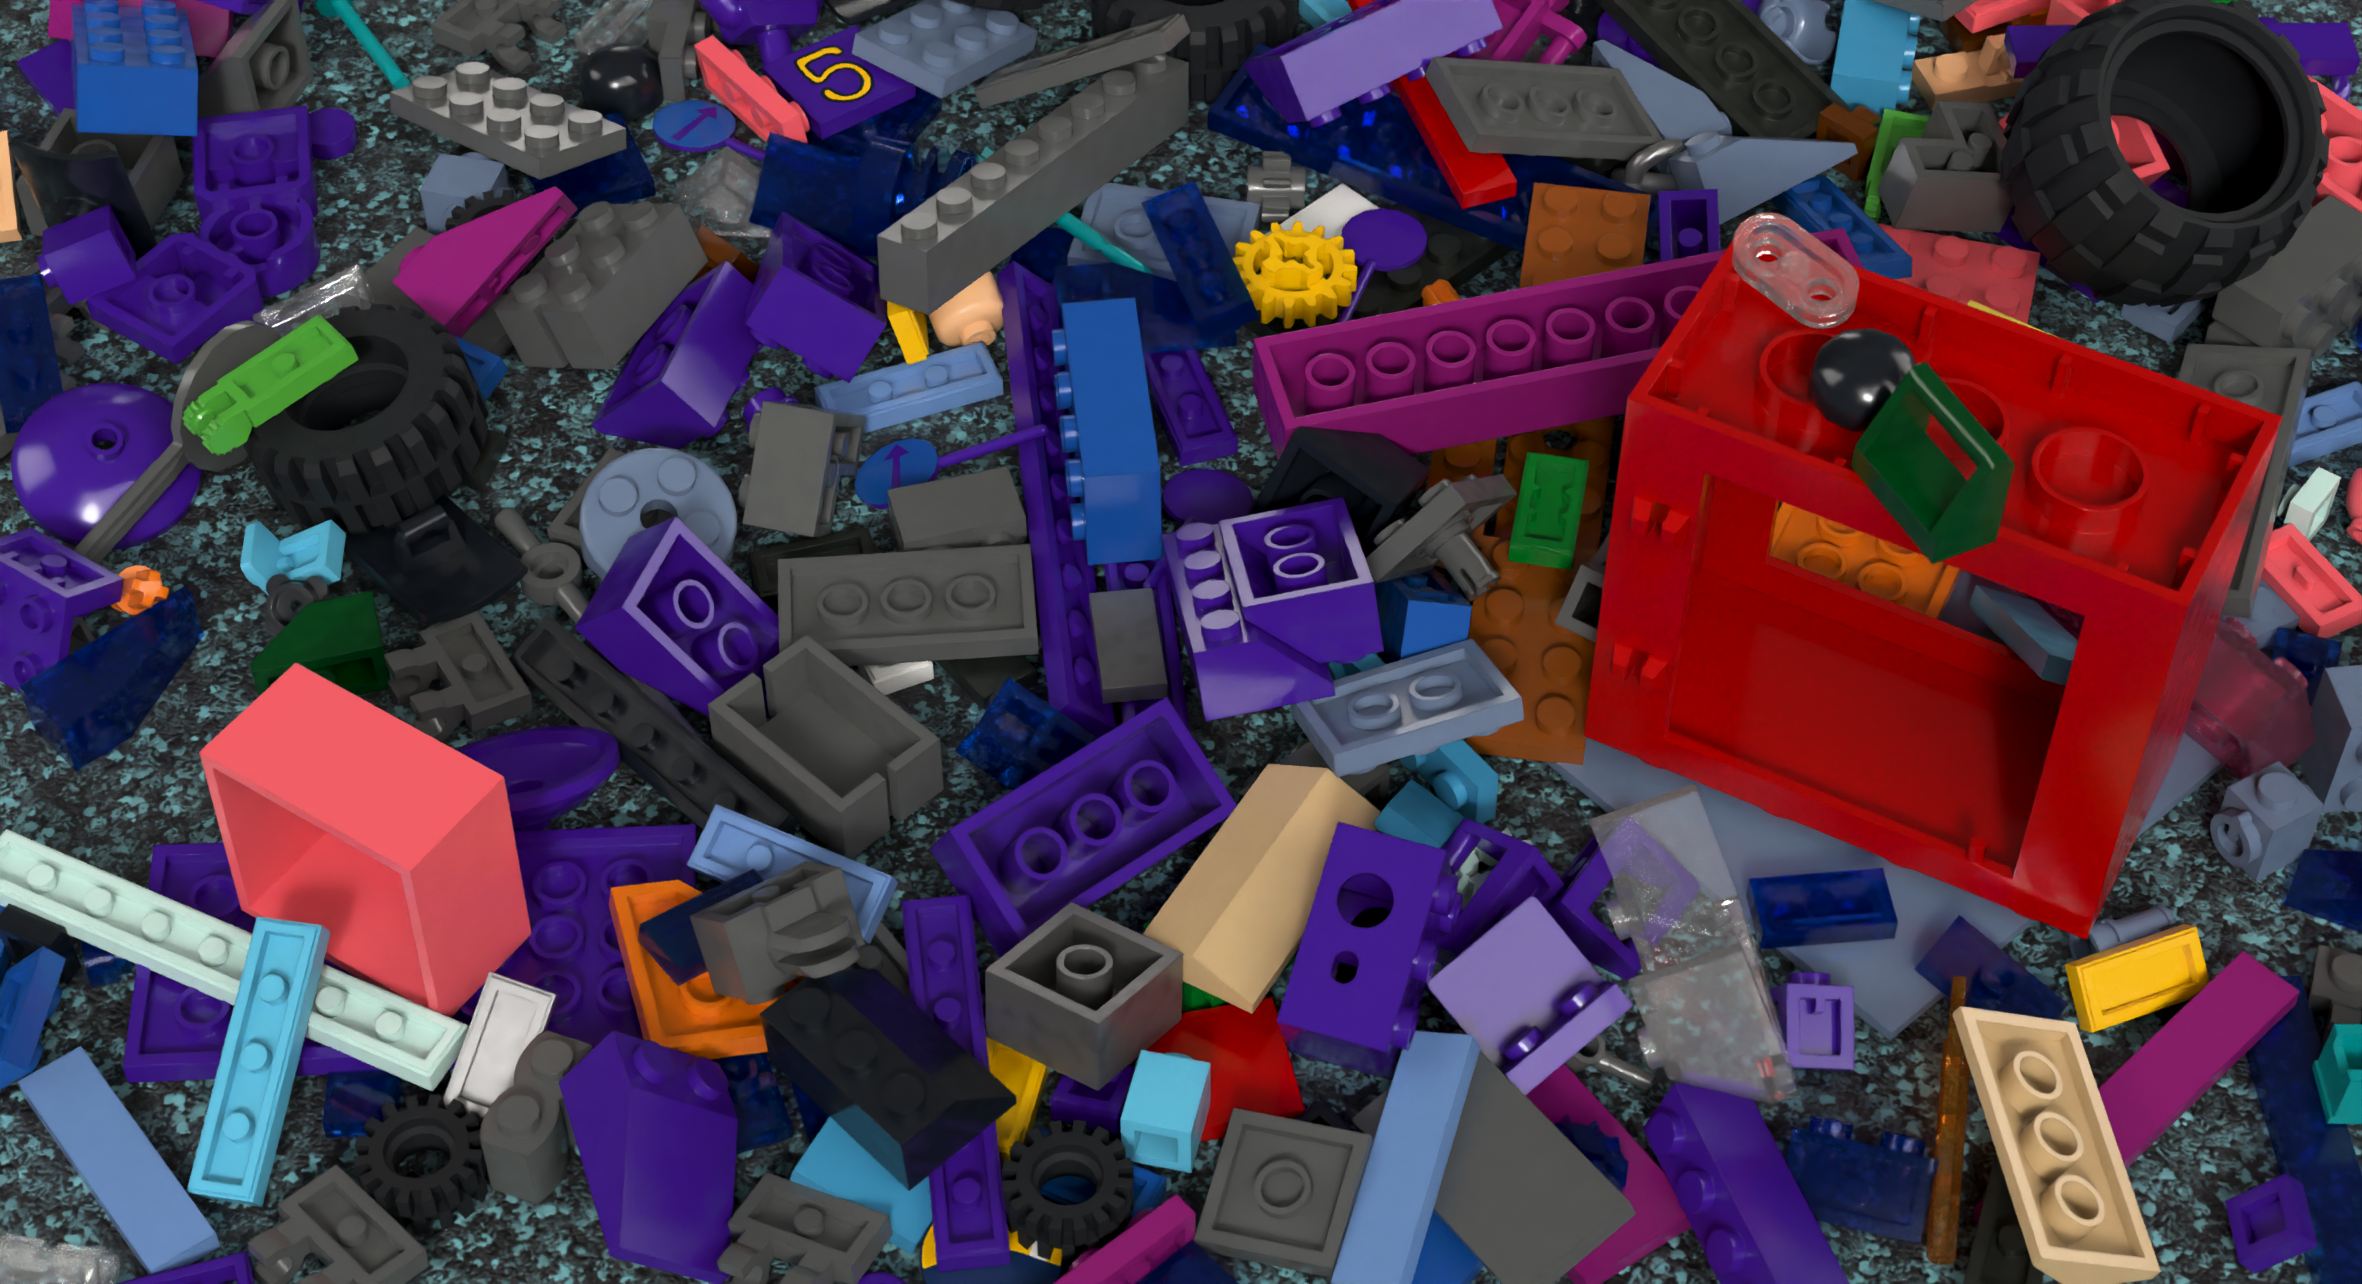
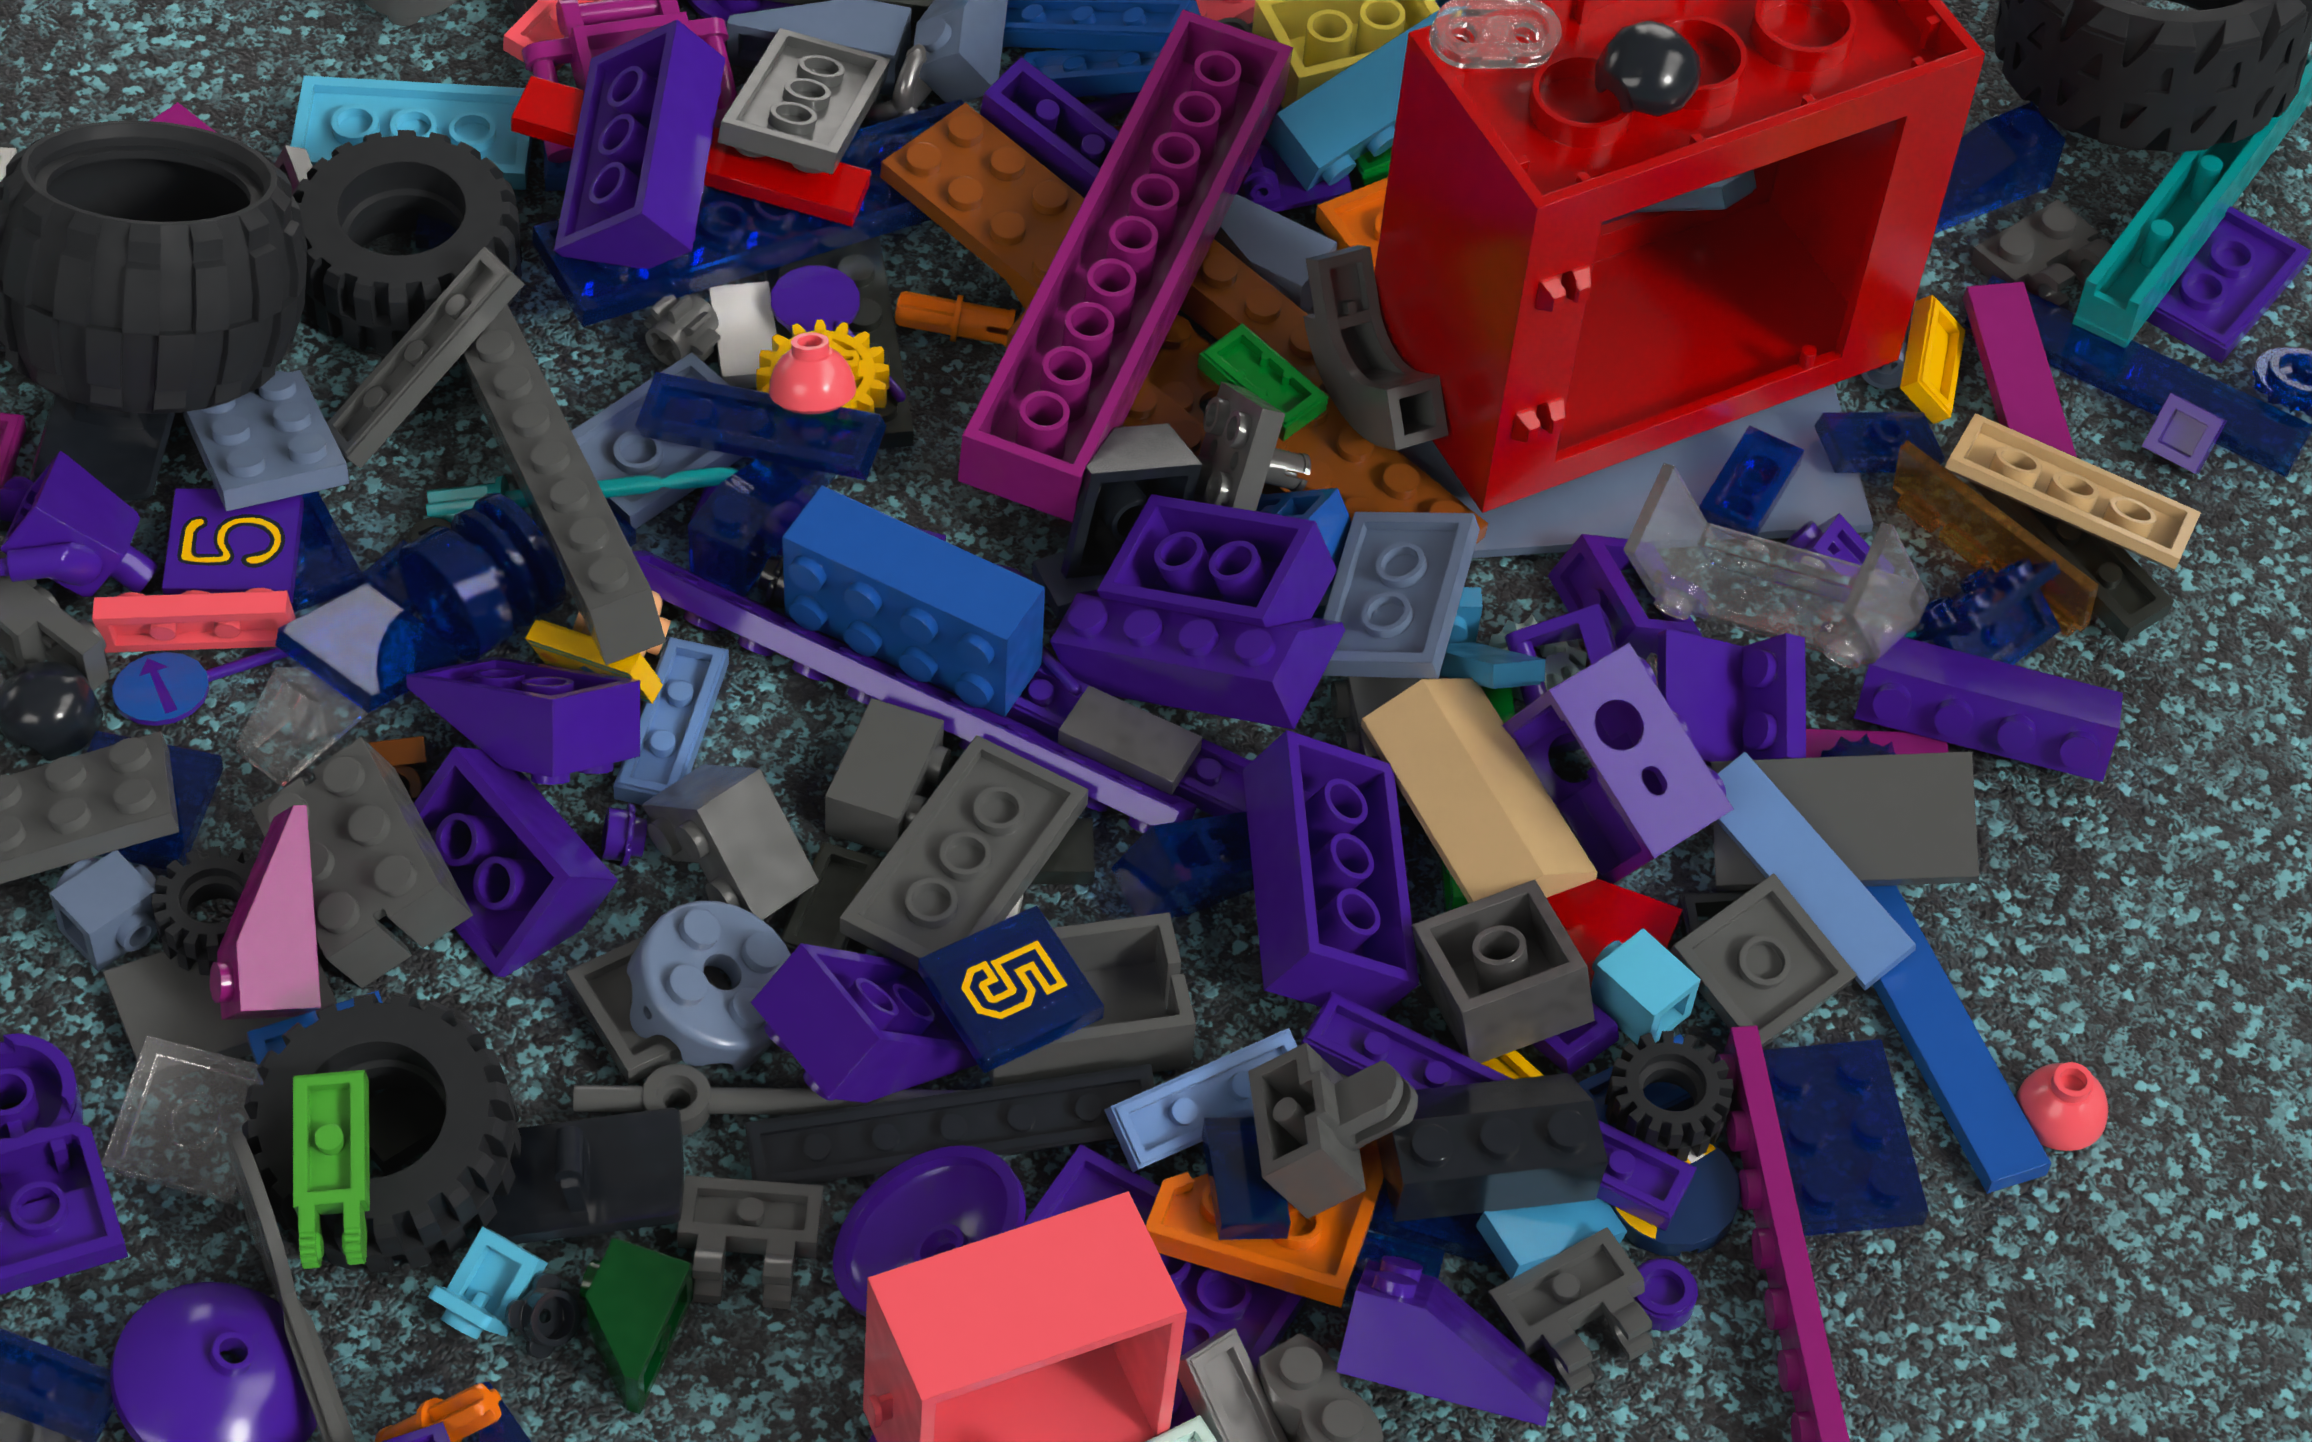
camera: 60 degrees left, 5 degrees up
(767, 676) = (1010, 989): none -> clear blue tile
(918, 462) = (787, 765): blue piece -> none
(1247, 243) = (811, 377): none -> coral brick
(1919, 482) = (1781, 108): dark green tile -> none

